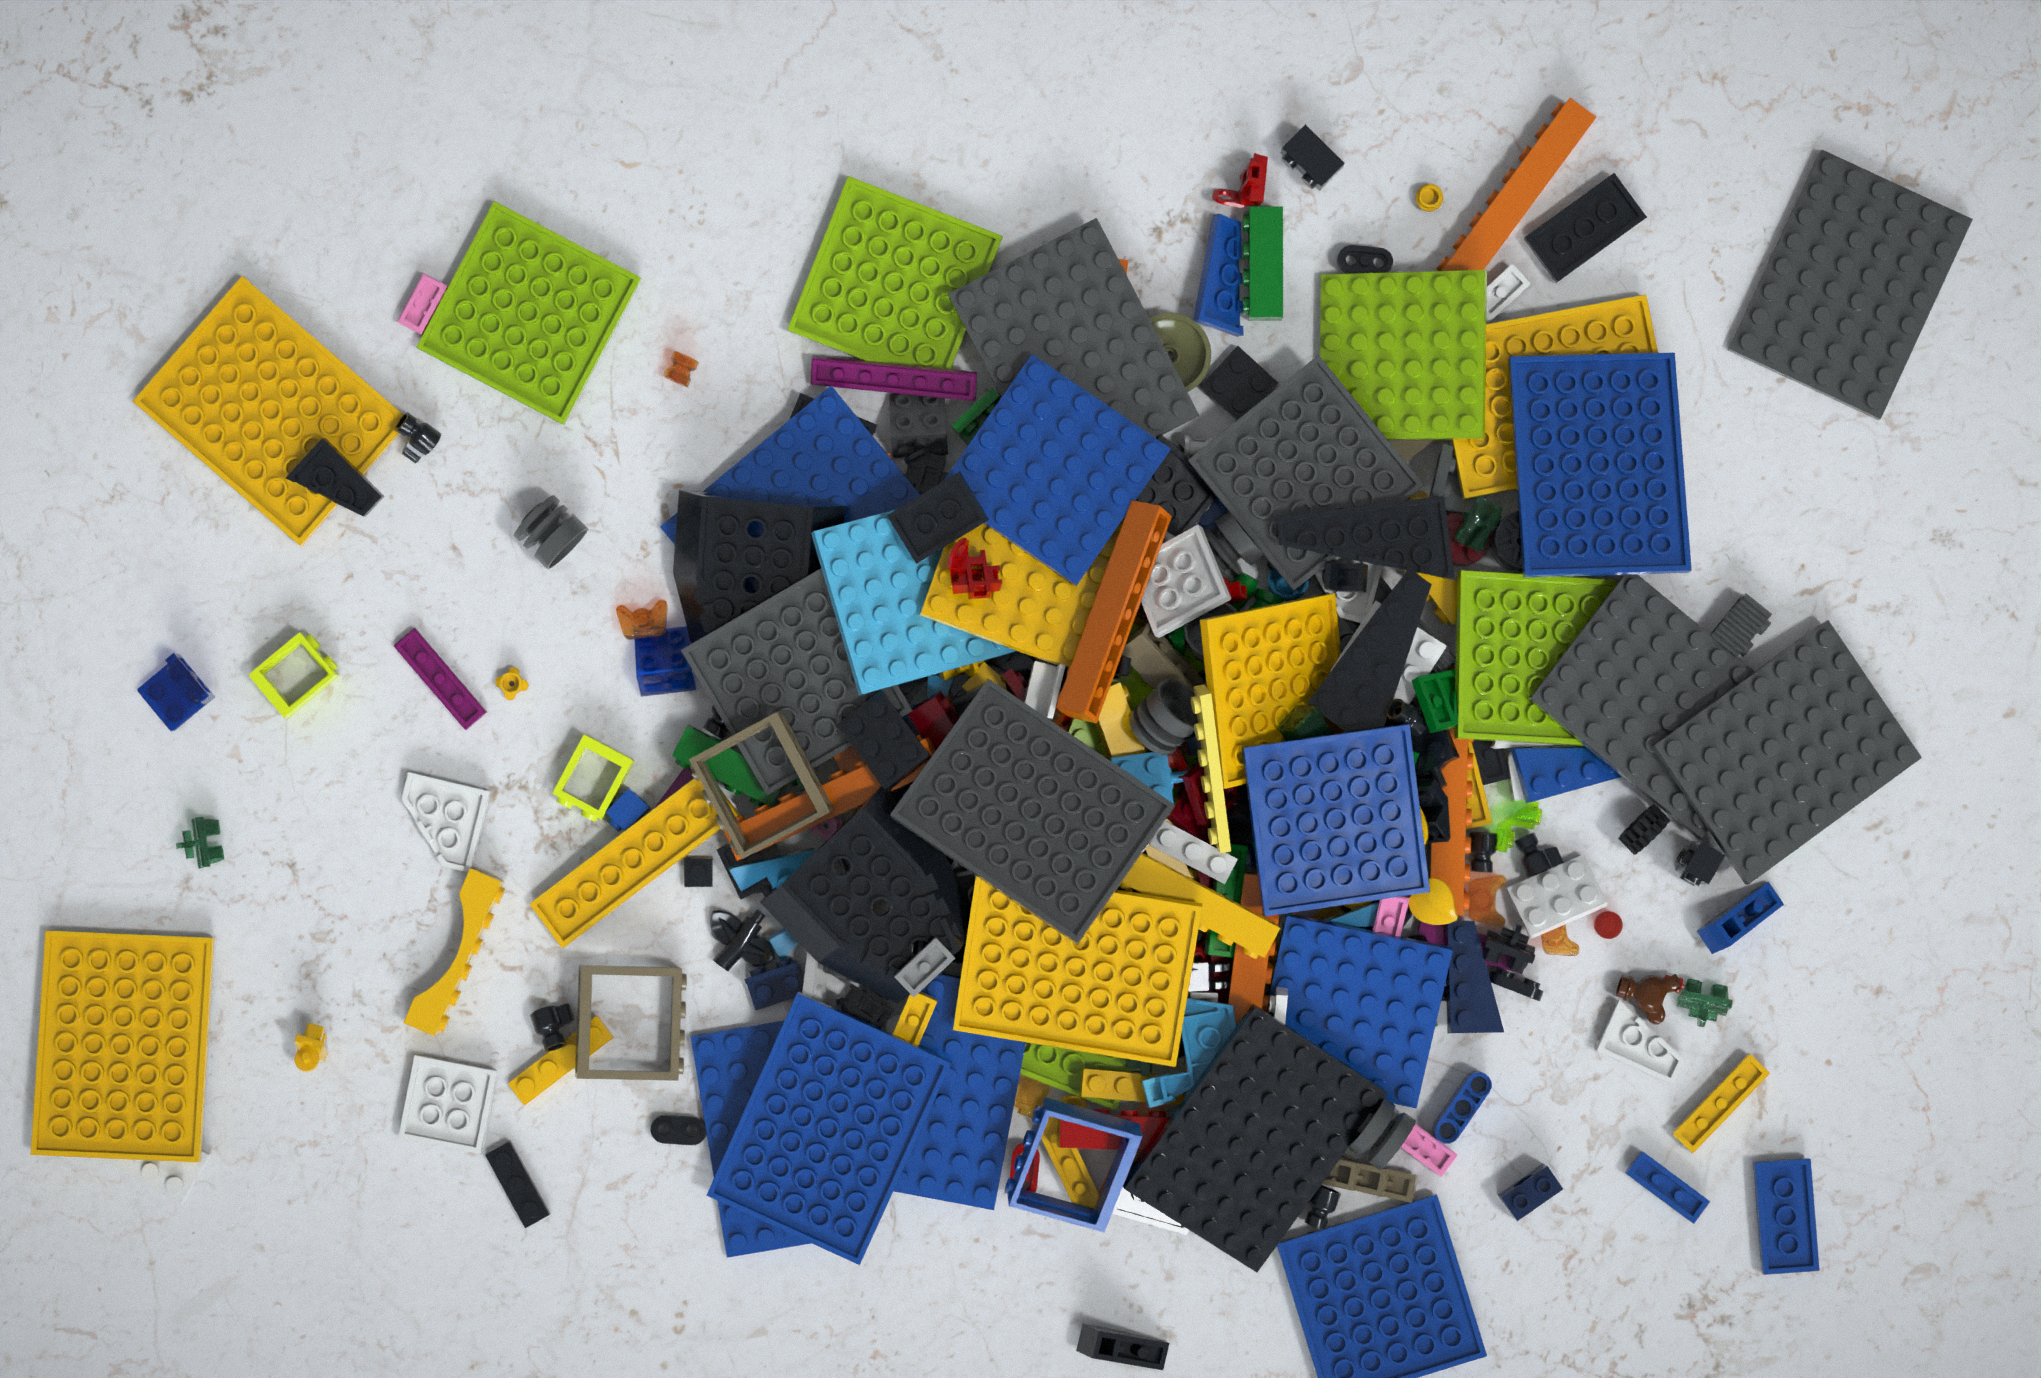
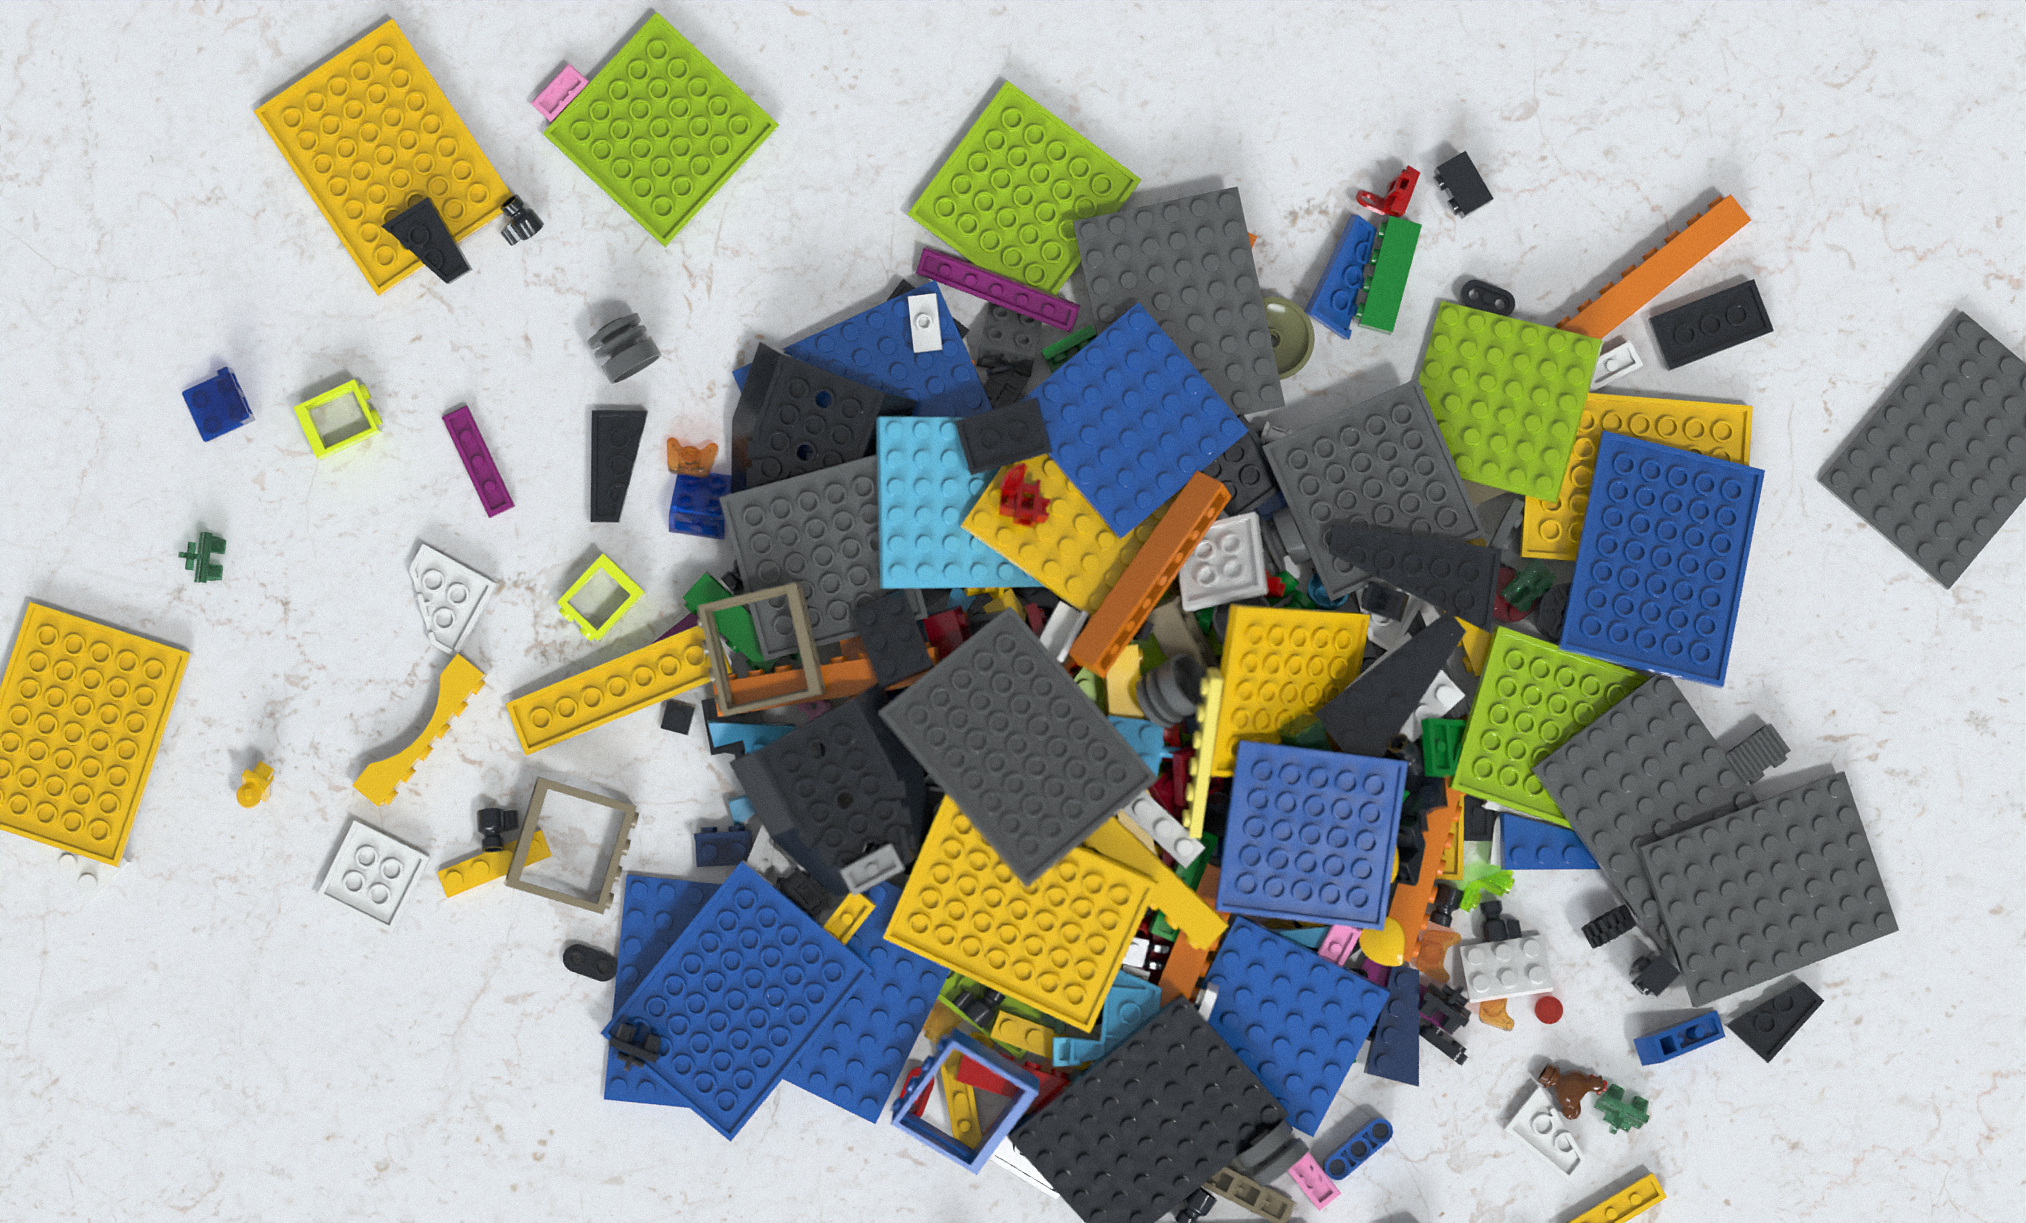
camera: 15 degrees right, 0 degrees up
(517, 1184) = (420, 972): black plate -> none
(519, 683) = (539, 481): yellow plate -> none
(568, 638) = (613, 457): none -> black wing
(627, 810) = (624, 639): blue brick -> none
(681, 368) = (793, 224): clear orange wheel -> none
(731, 1196) = (625, 1041): none -> black hips
(740, 939) = (700, 794): black plant -> none
(833, 429) = (925, 323): none -> white plate
(1062, 1072) = (981, 1008): none -> black piece
(1238, 384) = (1332, 385): black plate -> none
(1429, 197) = (1567, 254): yellow plate -> none
(1828, 875) = (1776, 1020): none -> black wing

